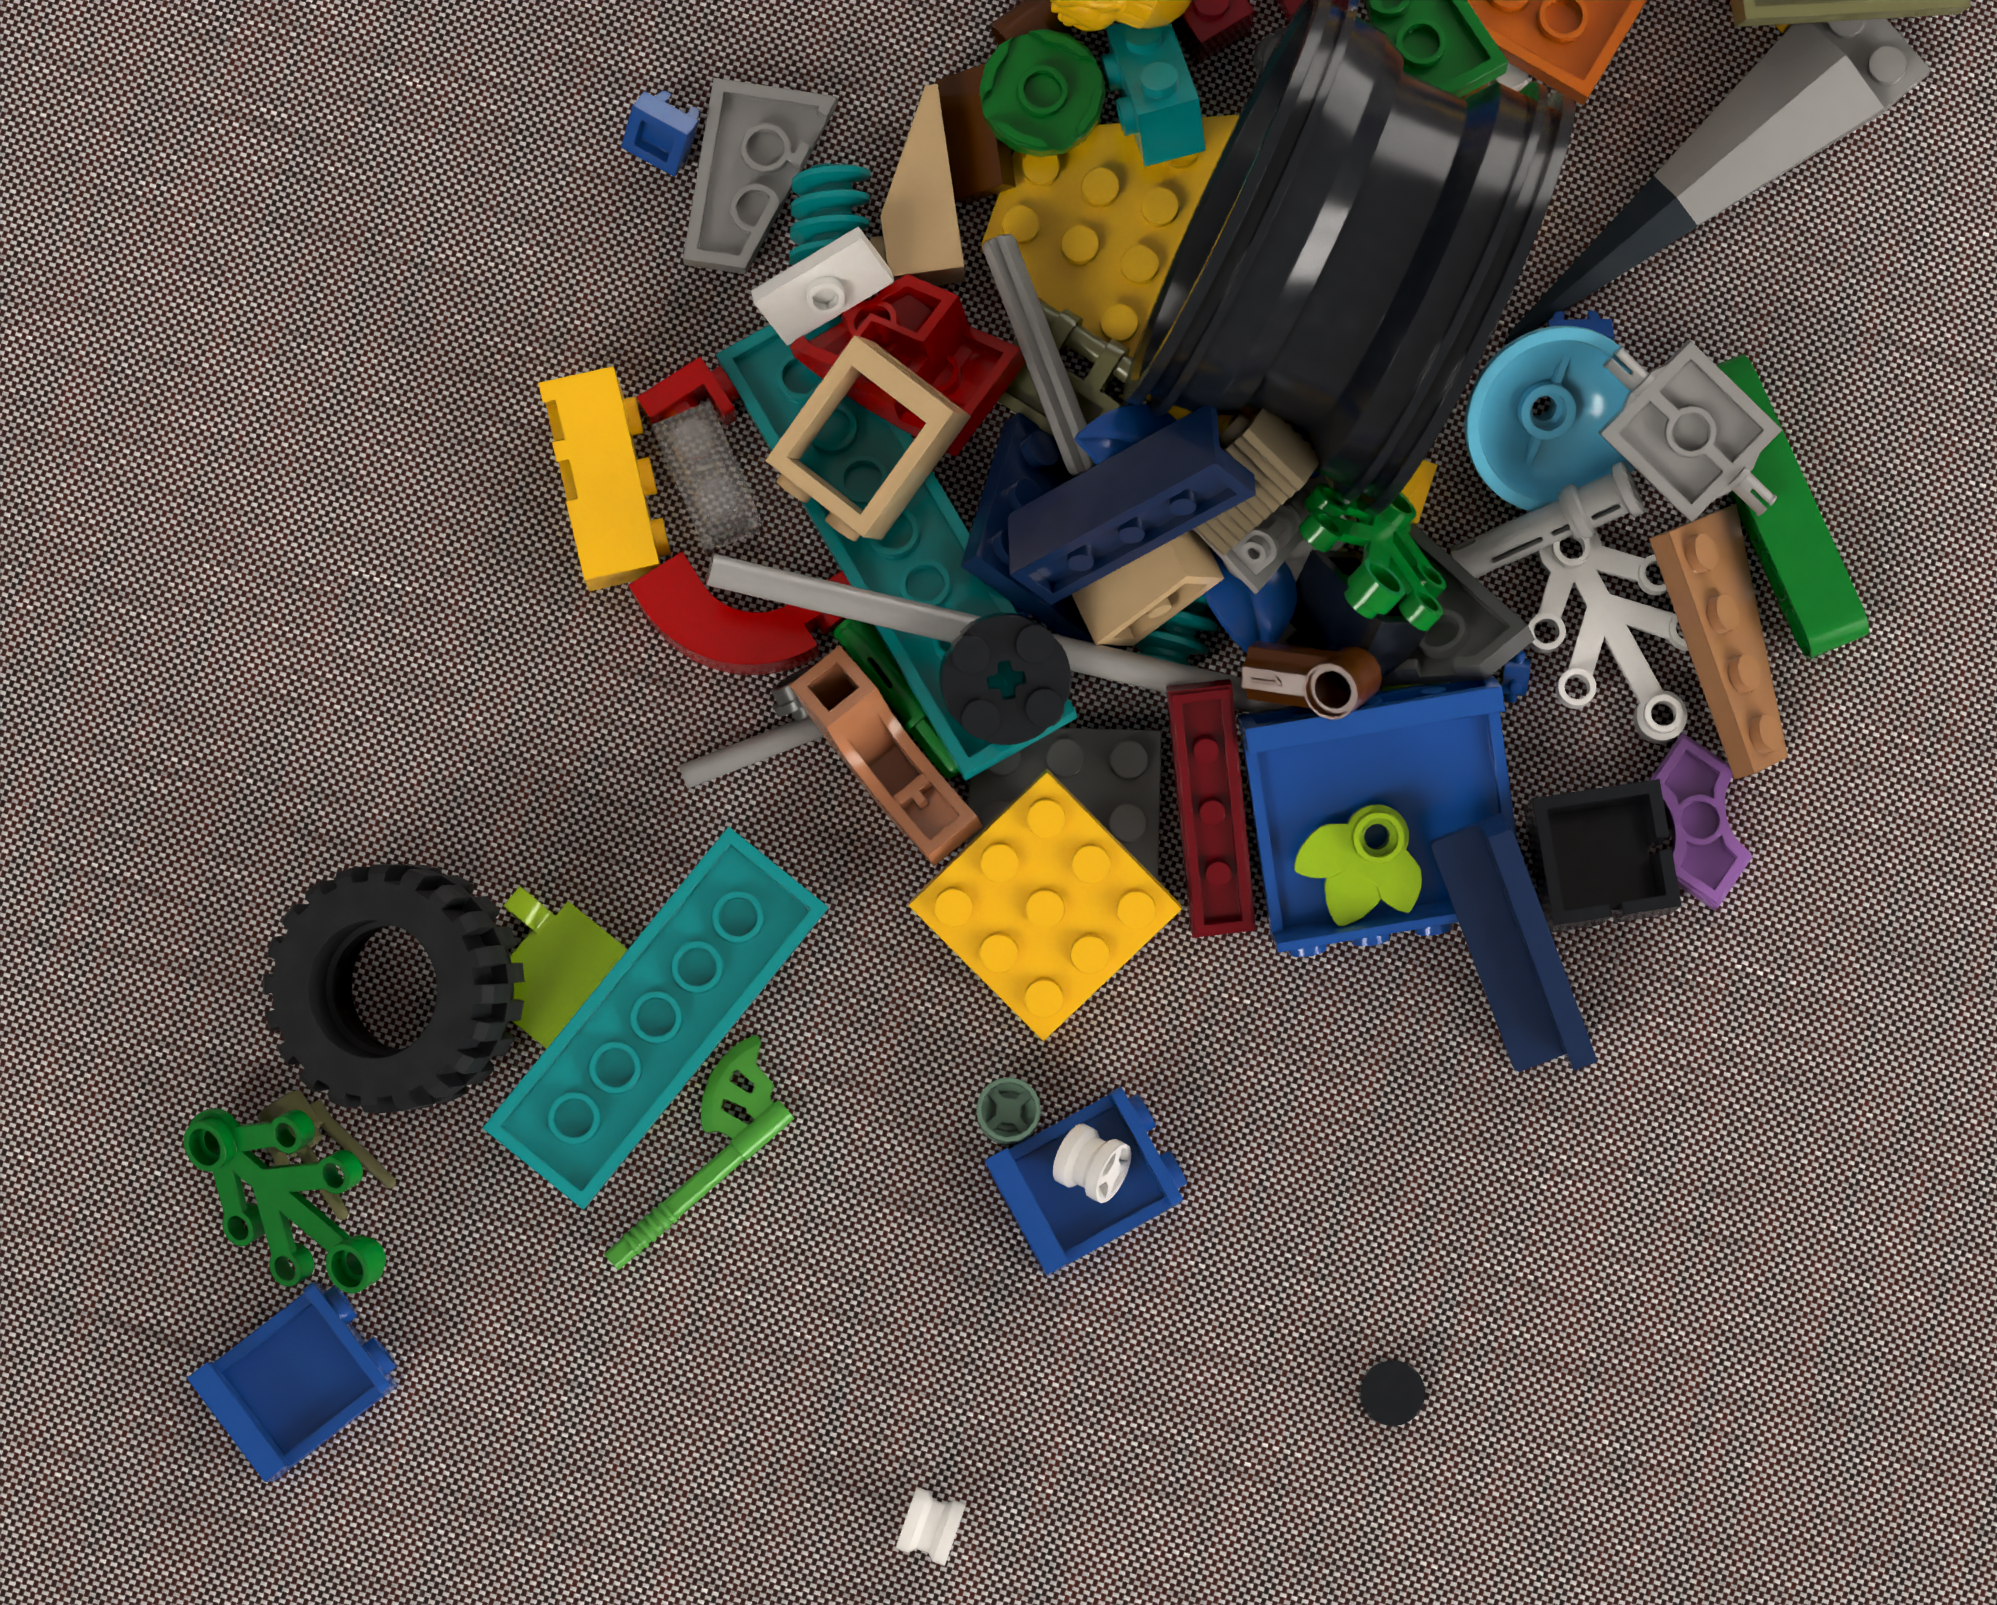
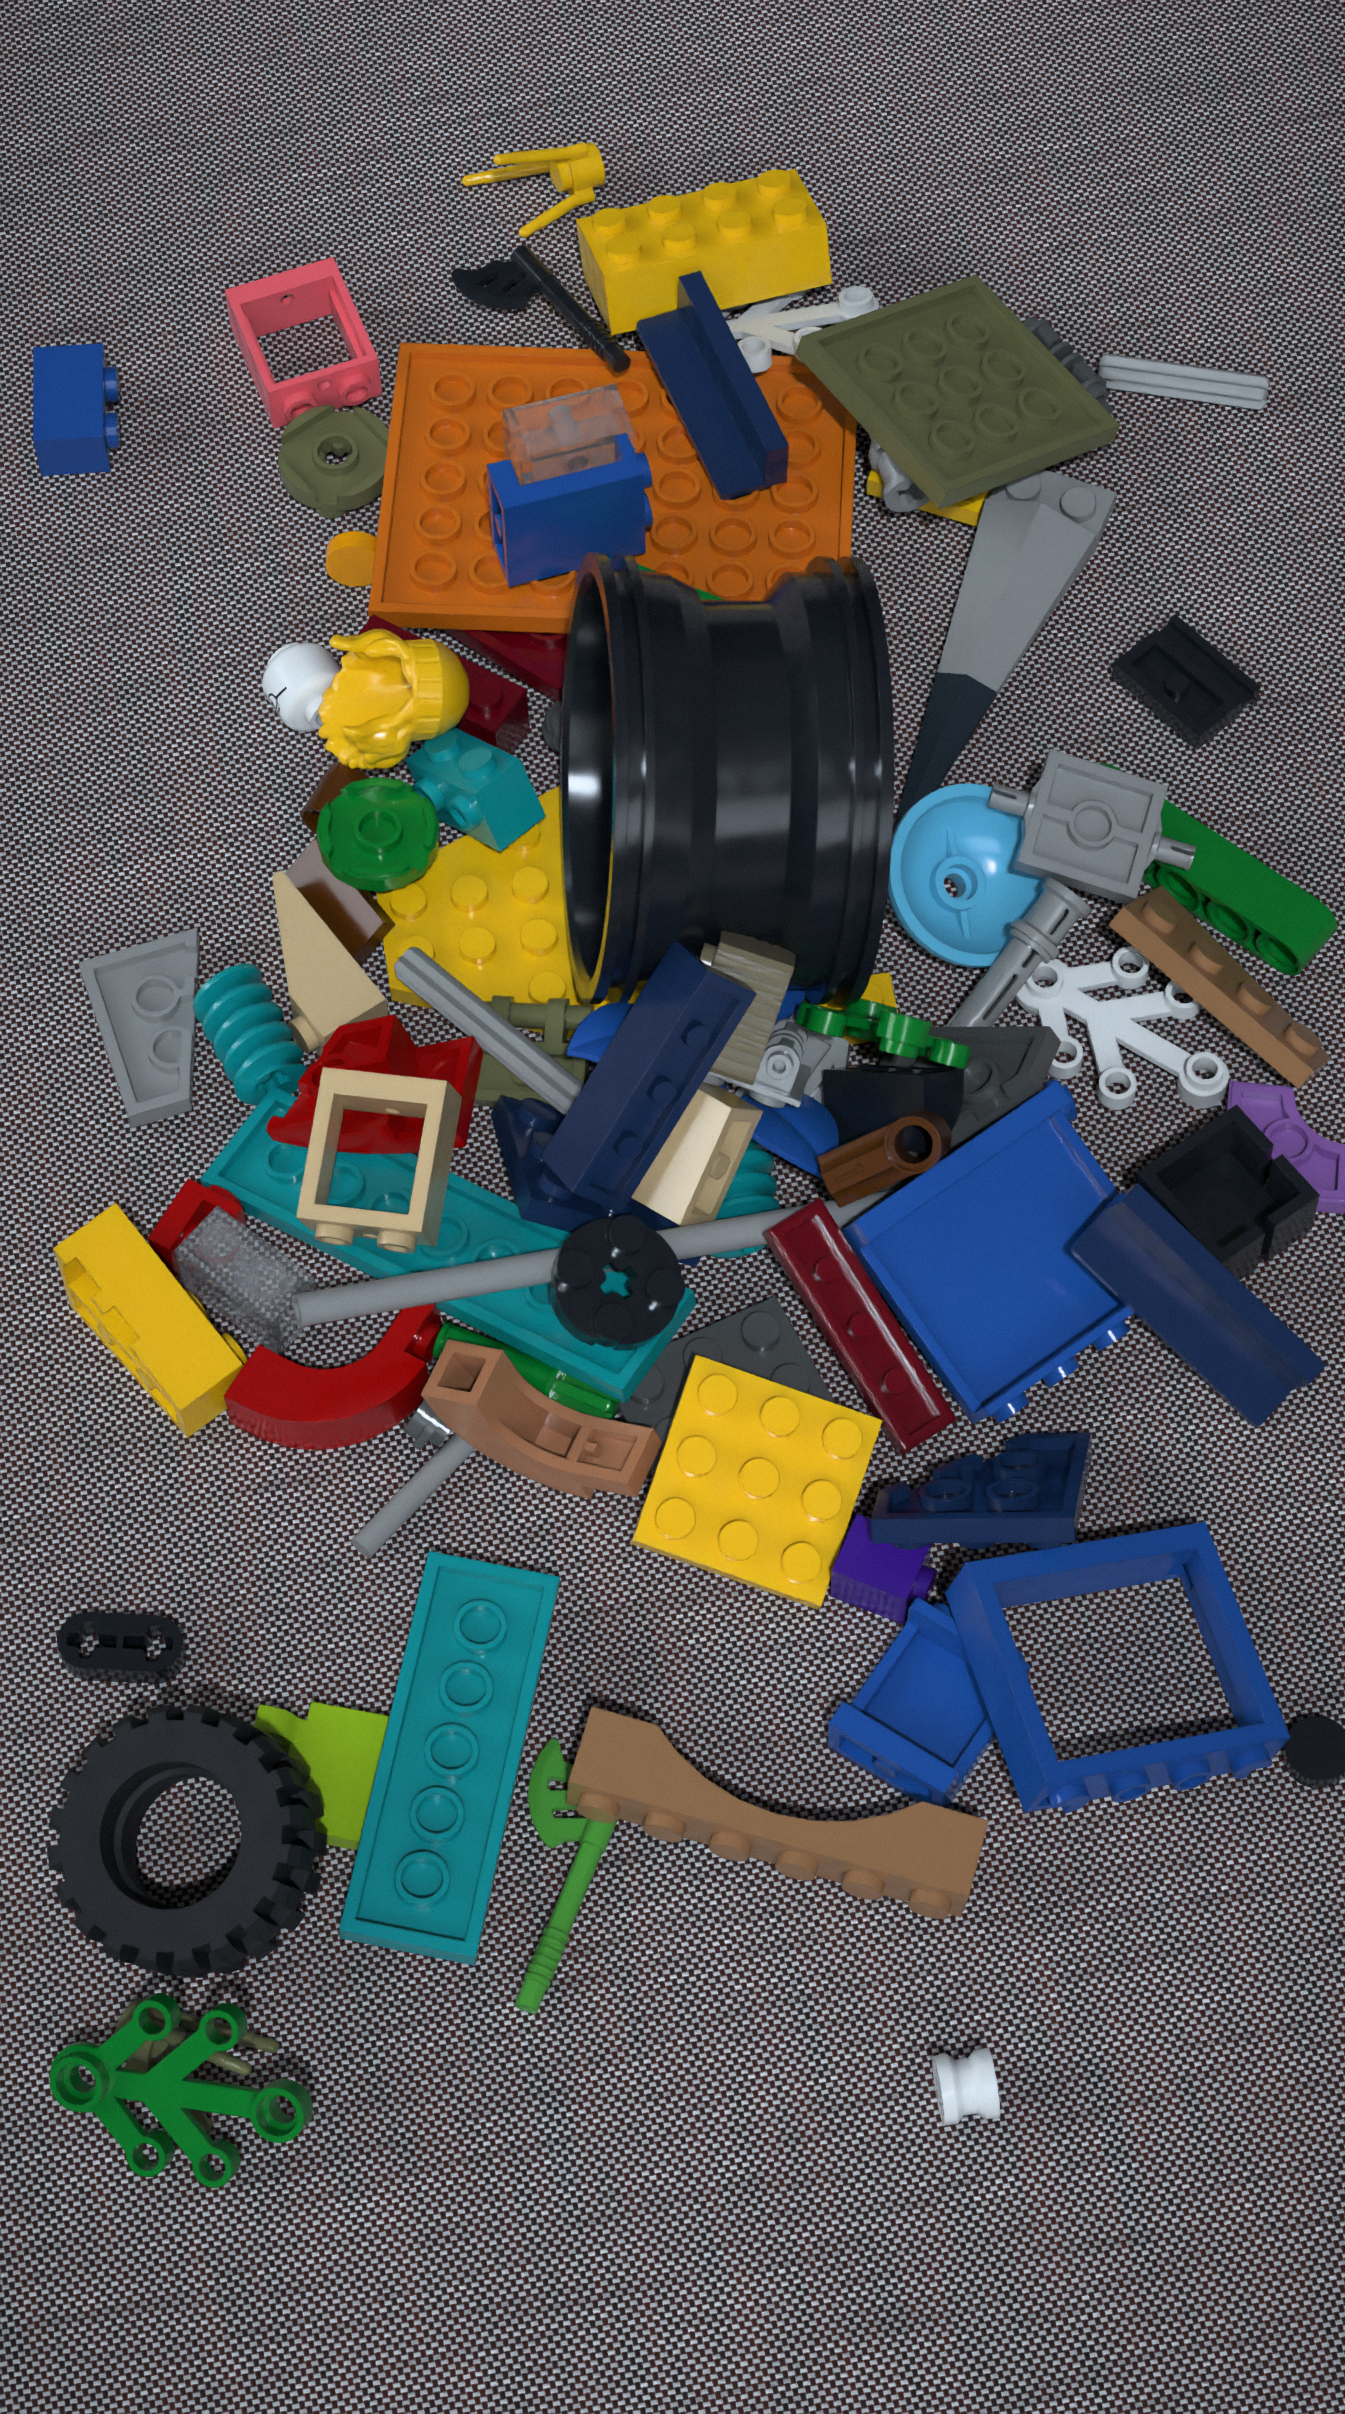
camera: 25 degrees left, 20 degrees down
(295, 1381) = (278, 2272): blue panel -> none
(444, 750) = (123, 1634): none -> black beam
(660, 132) = (53, 1029): blue tile -> none
(822, 286) = (269, 1065): white plate -> none
(997, 1306) = (911, 1855): none -> medium nougat arch
(1004, 1103) = (825, 1664): sand green wheel -> none
(1091, 1163) = (928, 1679): white wheel -> none
(1113, 1039) = (880, 1575): none -> dark purple brick
(1142, 1225) = (1097, 1566): none -> blue window
(1237, 1037) = (1017, 1497): none -> dark blue plate
(1358, 873) = (1020, 1317): lime plate -> none
(1880, 305) = (1186, 681): none -> black plate

